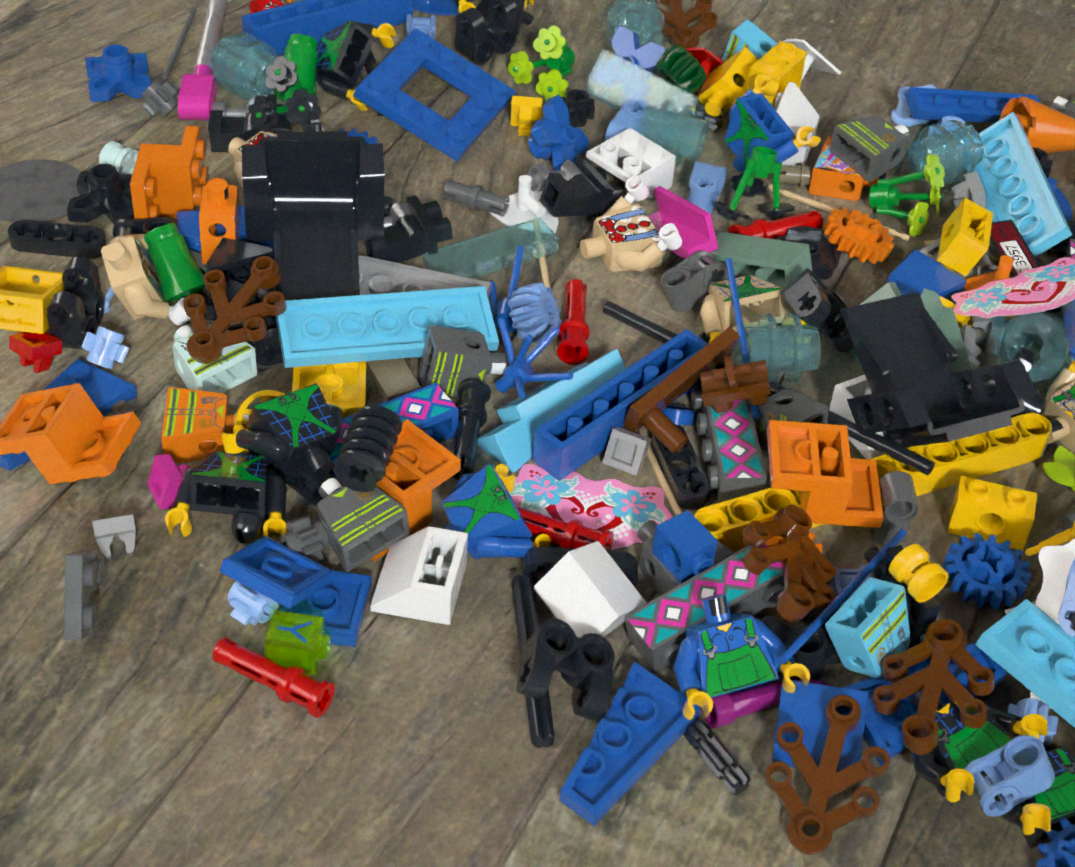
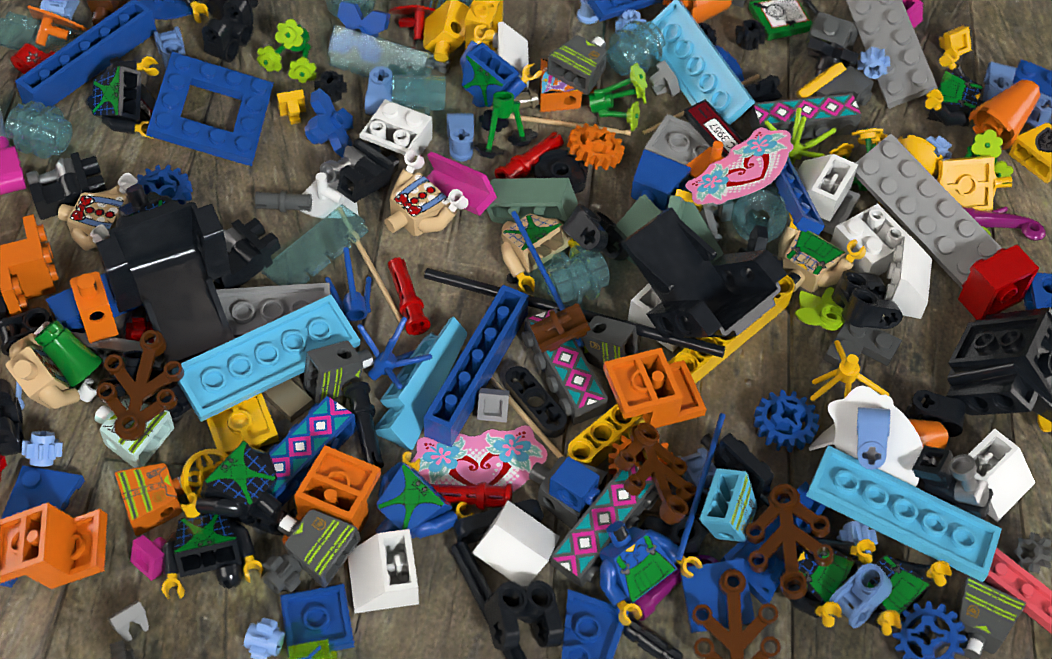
camera: 20 degrees left, 10 degrees up
(235, 258) = (123, 336): black slope -> none
(276, 571) = (275, 613): blue tile -> none
(299, 101) = (101, 154): black plant -> none
(303, 52) = (86, 121): green plant -> none
(367, 448) = (309, 488): black piece -> none
(534, 311) = (377, 302): medium blue gear -> none
(649, 408) = (501, 370): reddish brown piece -> none
(679, 414) = (517, 359): blue tile -> none
(681, 69) = (405, 30): dark green gear -> none
(690, 279) = (486, 230): dark grey piece -> none
(898, 506) = (712, 391): dark grey piece -> none
(918, 573) = (753, 457): yellow wheel -> none
(965, 237) = (679, 129): yellow brick -> none
(992, 510) = (774, 369): yellow brick -> none

